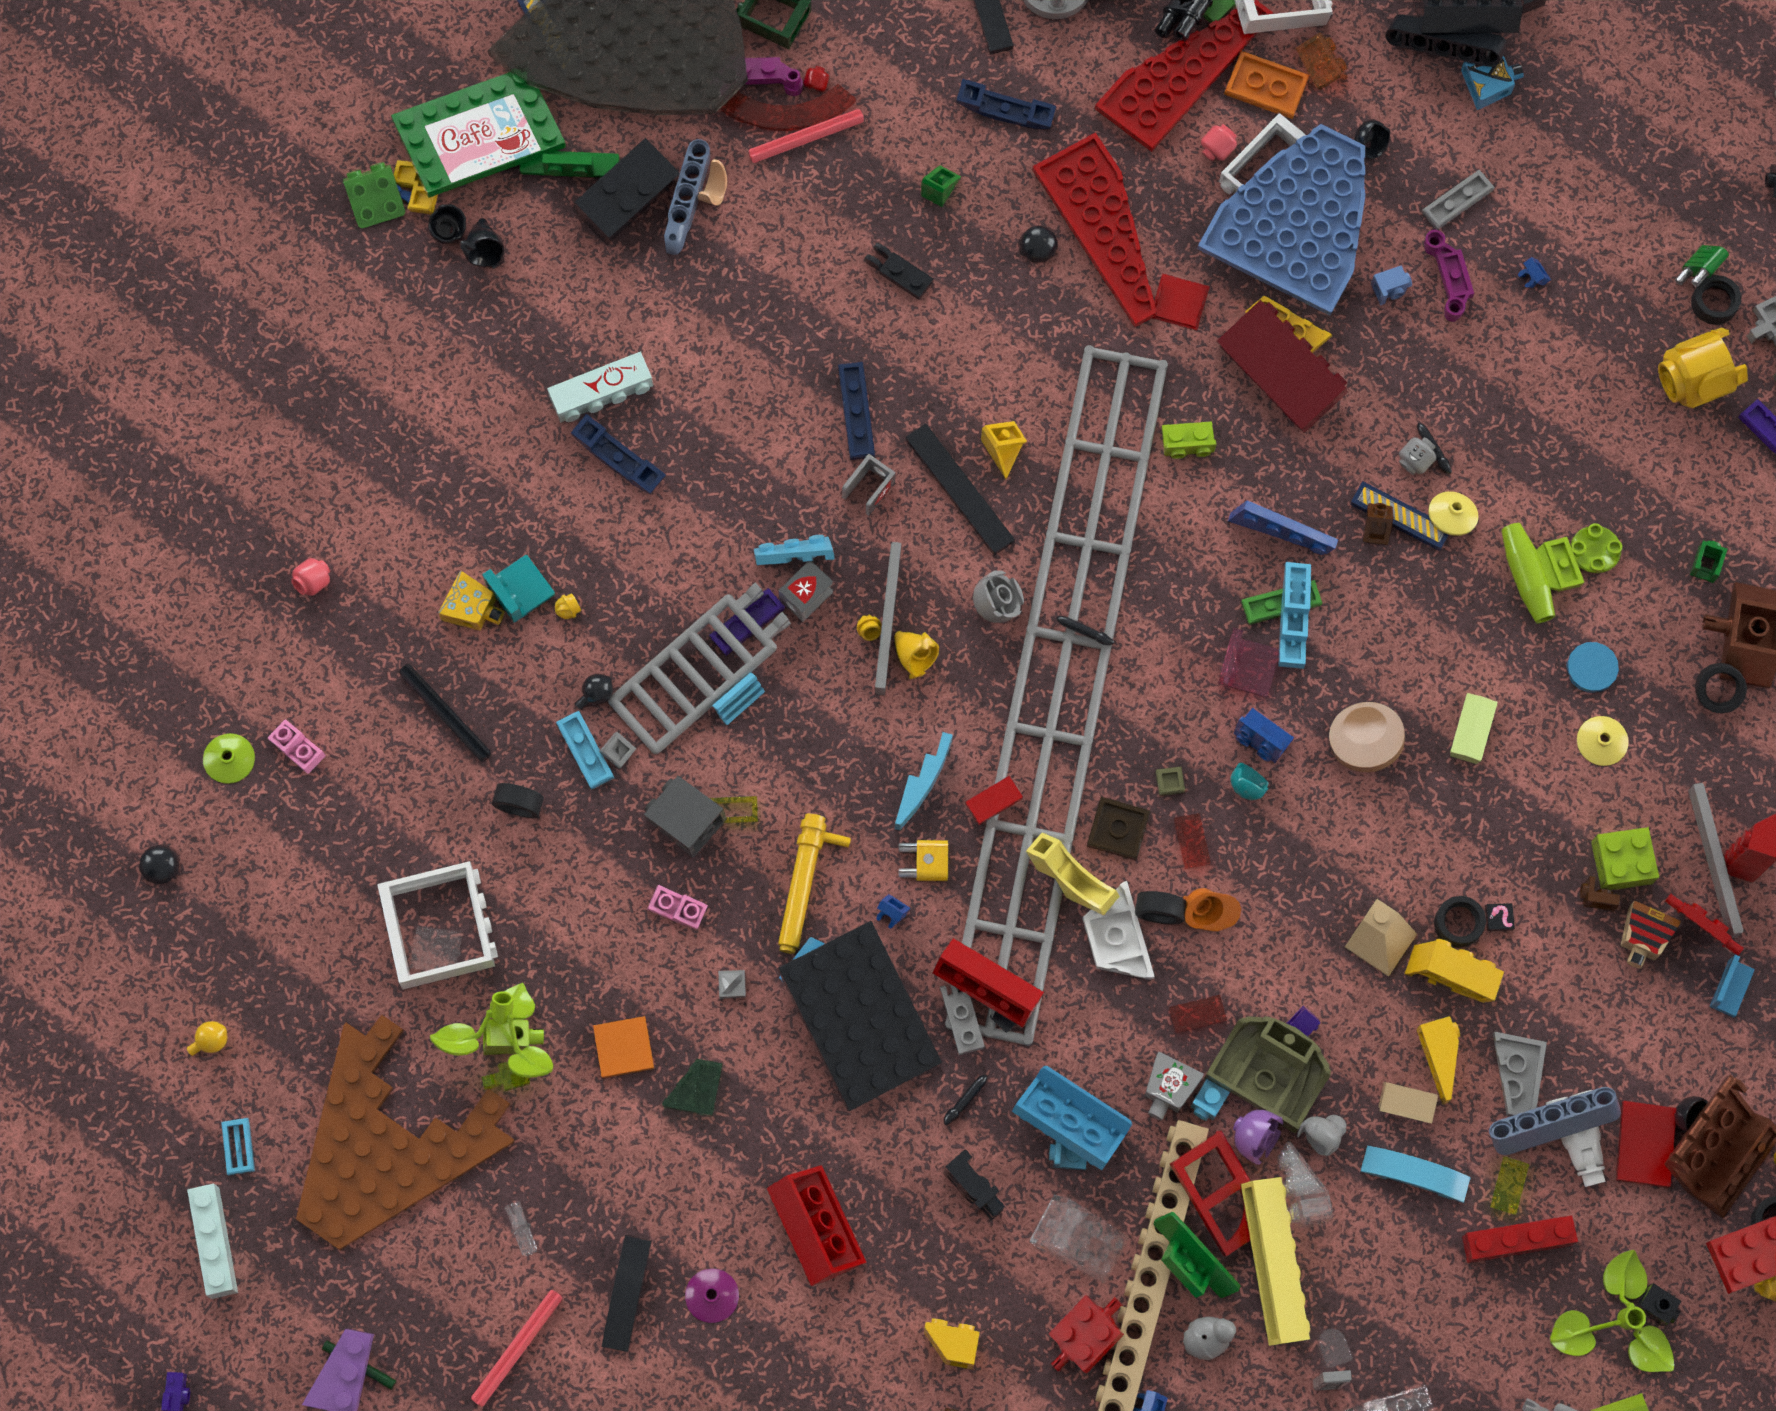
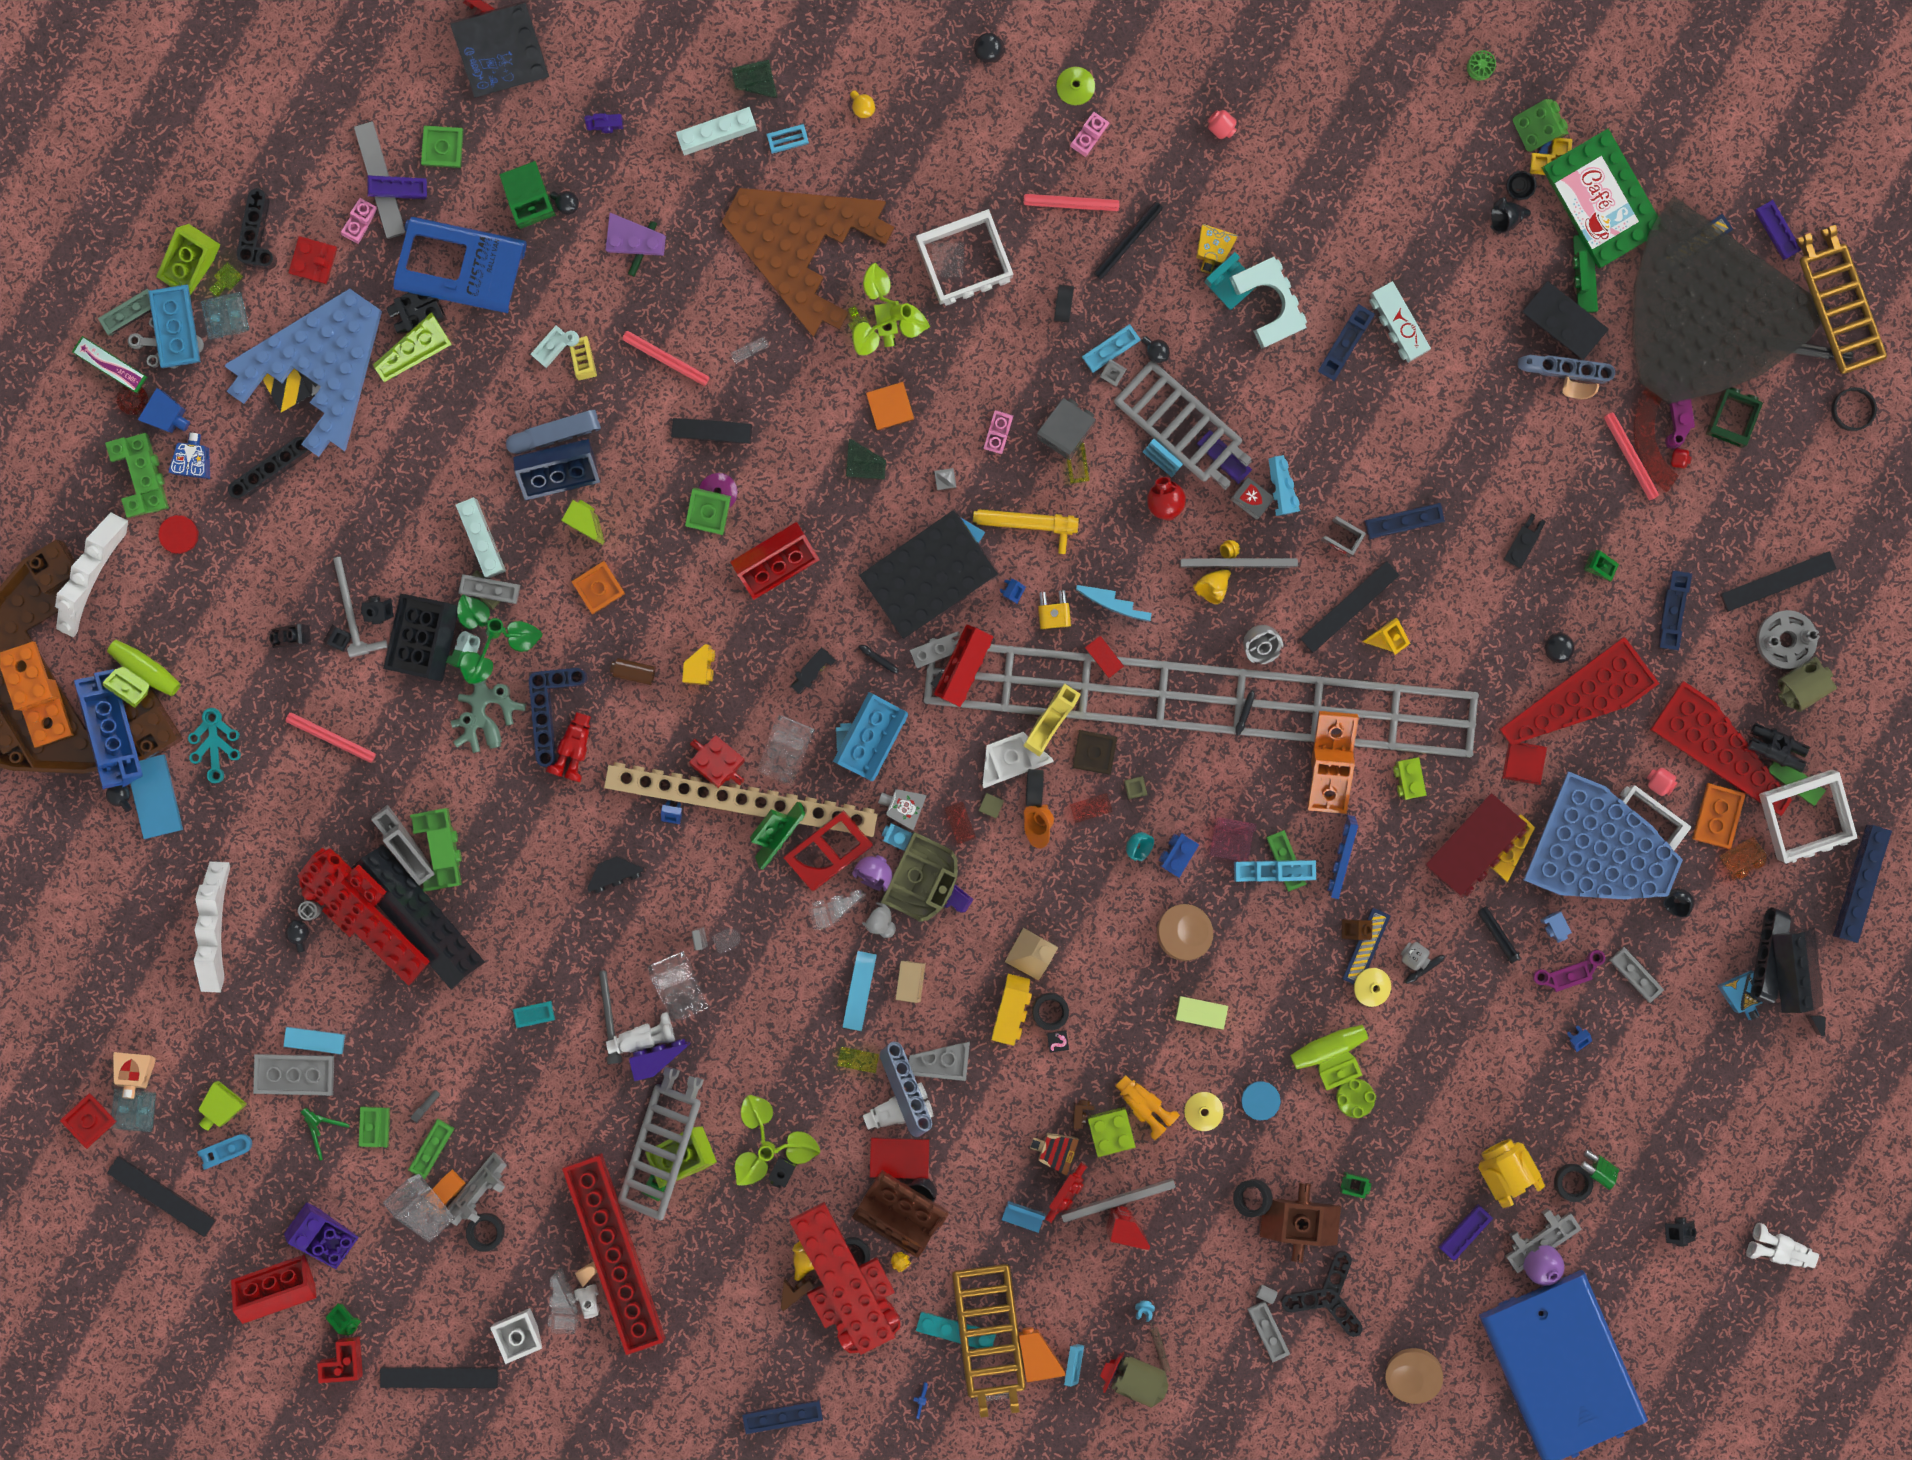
camera: 85 degrees right, 15 degrees up
(148, 1180) = (755, 78): none -> clear green wing
(286, 256) = (1481, 65): none -> bright green wheel
(383, 780) = (1071, 202): none -> coral axle
(567, 607) = (1220, 320): yellow plate -> none
(577, 520) = (1290, 319): none -> light aqua arch
(737, 1310) = (708, 511): none -> bright green tile
(794, 697) = (1166, 499): none -> red brick
(1160, 527) = (1332, 762): none -> orange bracket
(1178, 970) = (991, 805): none -> olive tile
(1218, 1333) = (724, 855): light grey piece -> none
(1275, 1261) = (783, 893): light yellow brick -> none
(1423, 341) = (1499, 935): none -> black axle
(1441, 1048) = (952, 1003): yellow slope -> none
(1519, 1239) = (818, 1069): red brick -> none
(1590, 813) = (1144, 1104): none -> light orange piece

